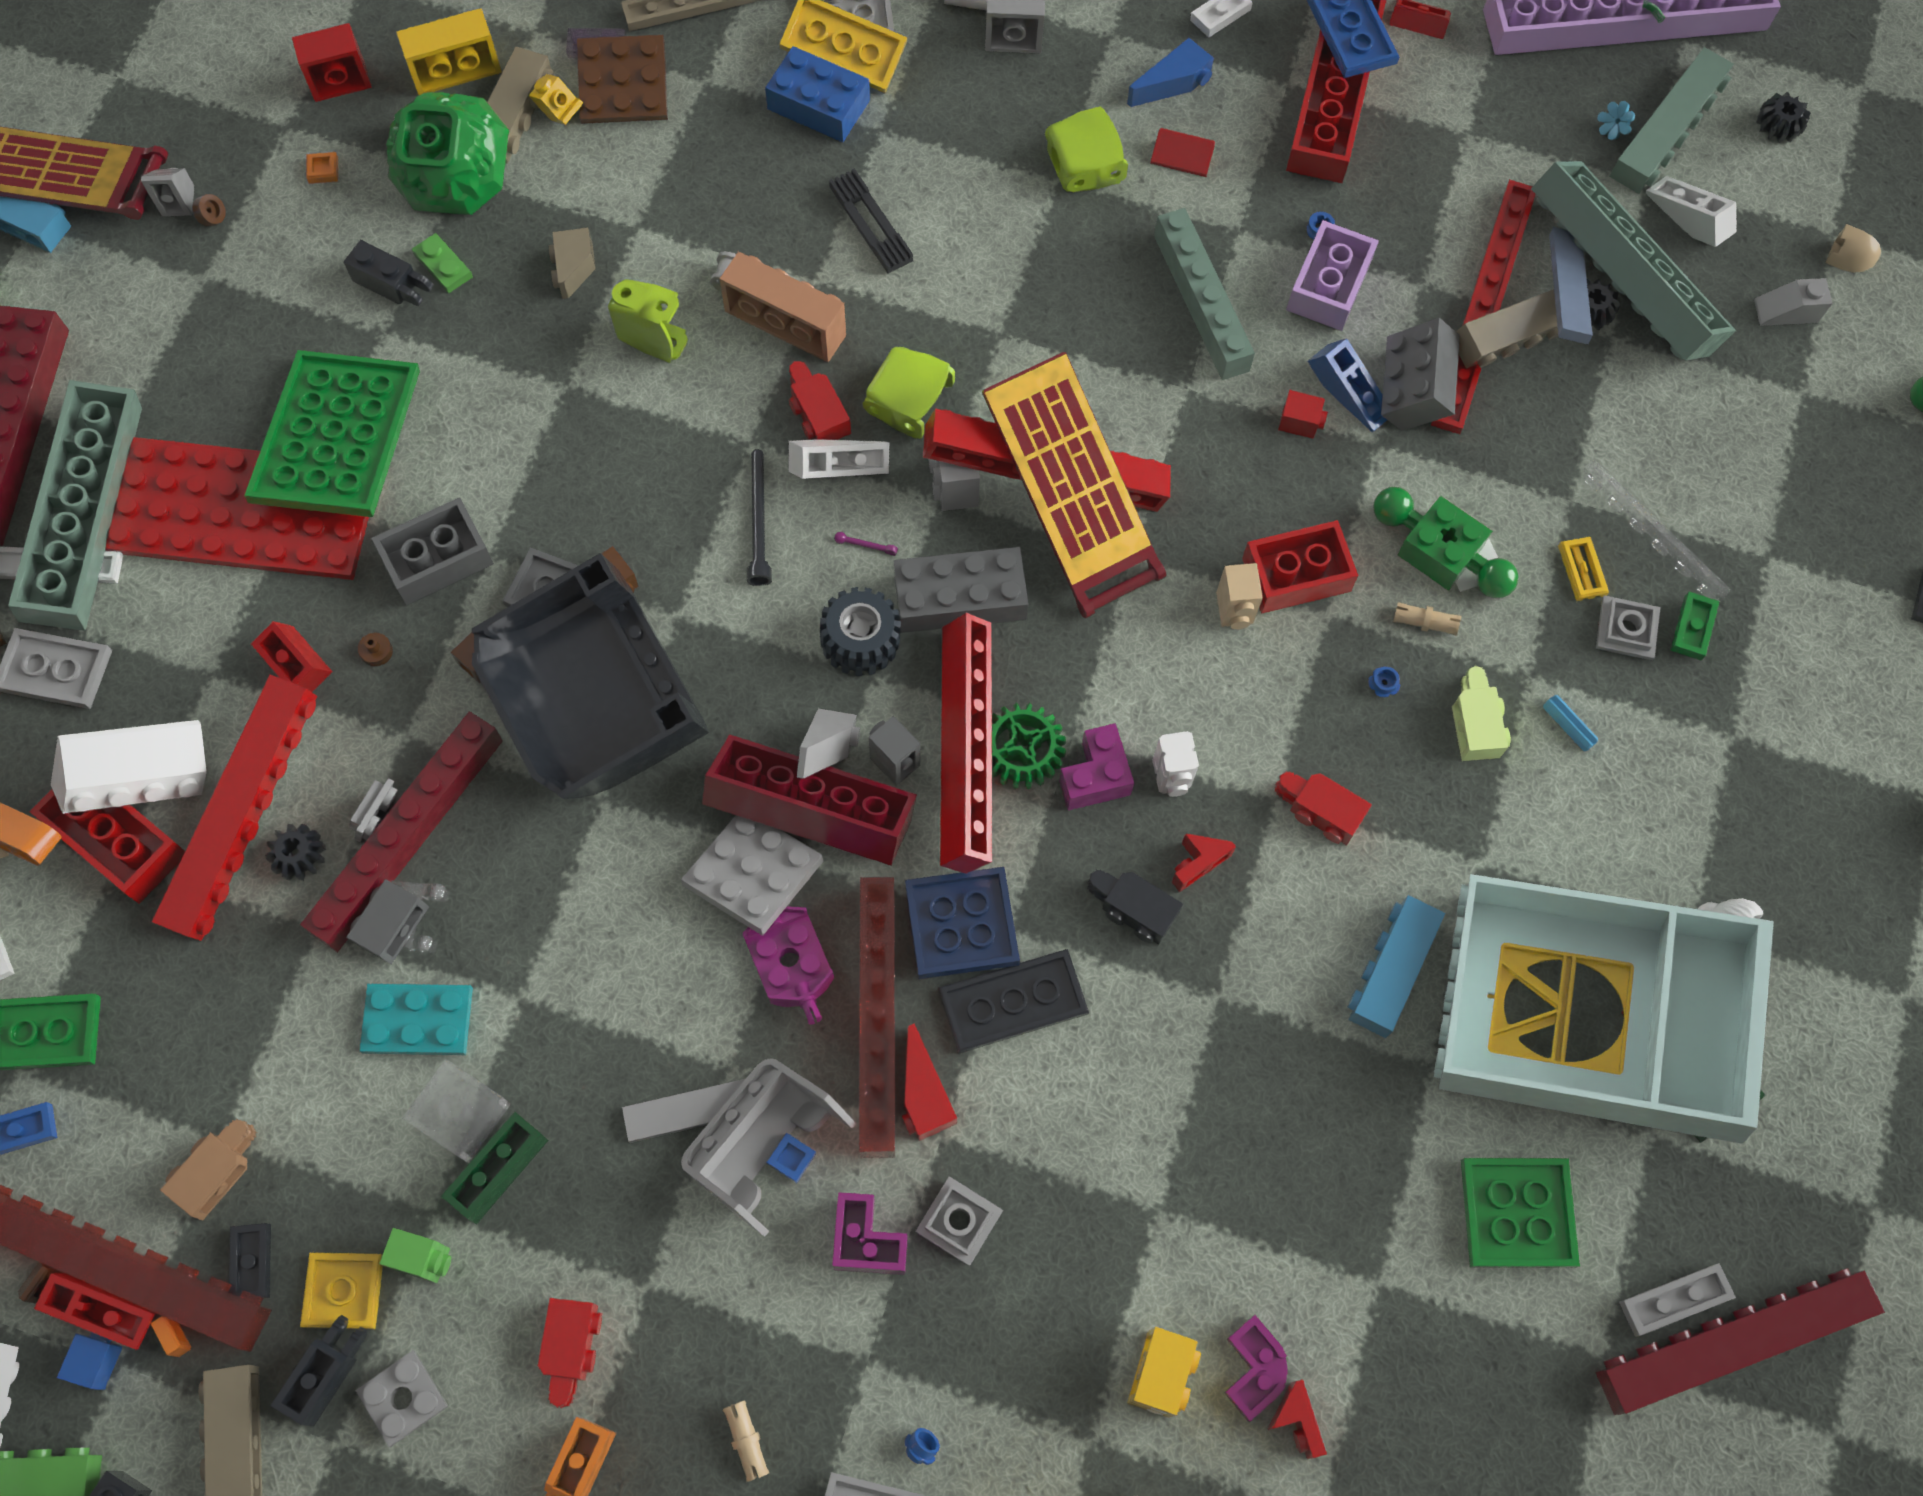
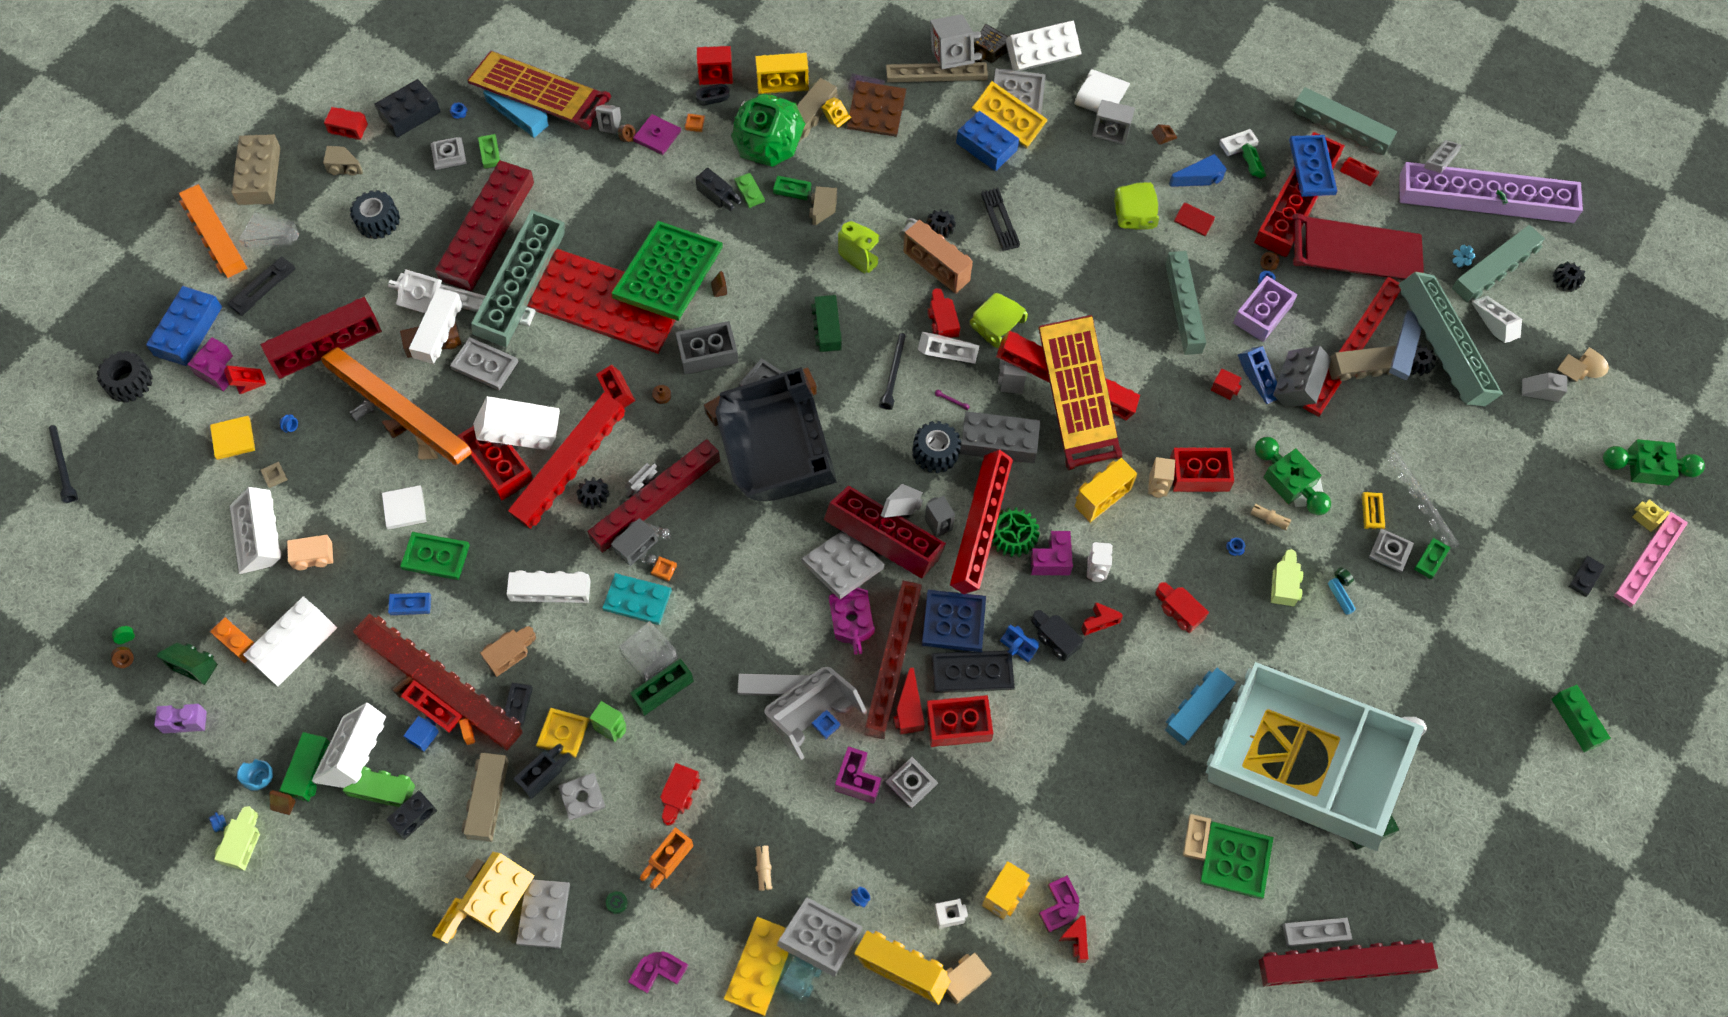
camera: 15 degrees right, 5 degrees down
(256, 1038) = (548, 587): none -> white brick
(262, 201) = (657, 134): none -> magenta plate
(340, 113) = (712, 94): none -> black plate
(429, 438) = (719, 285): none -> reddish brown slope
(450, 954) = (663, 569): none -> orange tile
(513, 243) = (792, 187): none -> green plate
(626, 462) = (826, 323): none -> dark green brick
(776, 248) = (941, 222): none -> black gear
(1013, 1095) = (959, 721): none -> red brick
(1069, 929) = (1014, 638): none -> blue hips
(1069, 1446) = (955, 906): none -> white brick
(1098, 22) = (1163, 133): none -> reddish brown slope
(1153, 637) = (1105, 489): none -> yellow brick
(1247, 30) = (1255, 165): none -> green plate
(1319, 195) = (1269, 261): none -> reddish brown tile
(1446, 1190) = (1197, 837): none -> tan plate
(1451, 143) = (1357, 248): none -> dark red flag
(1567, 689) = (1344, 576): none -> dark green tile
(1829, 264) = (1573, 368): none -> tan brick

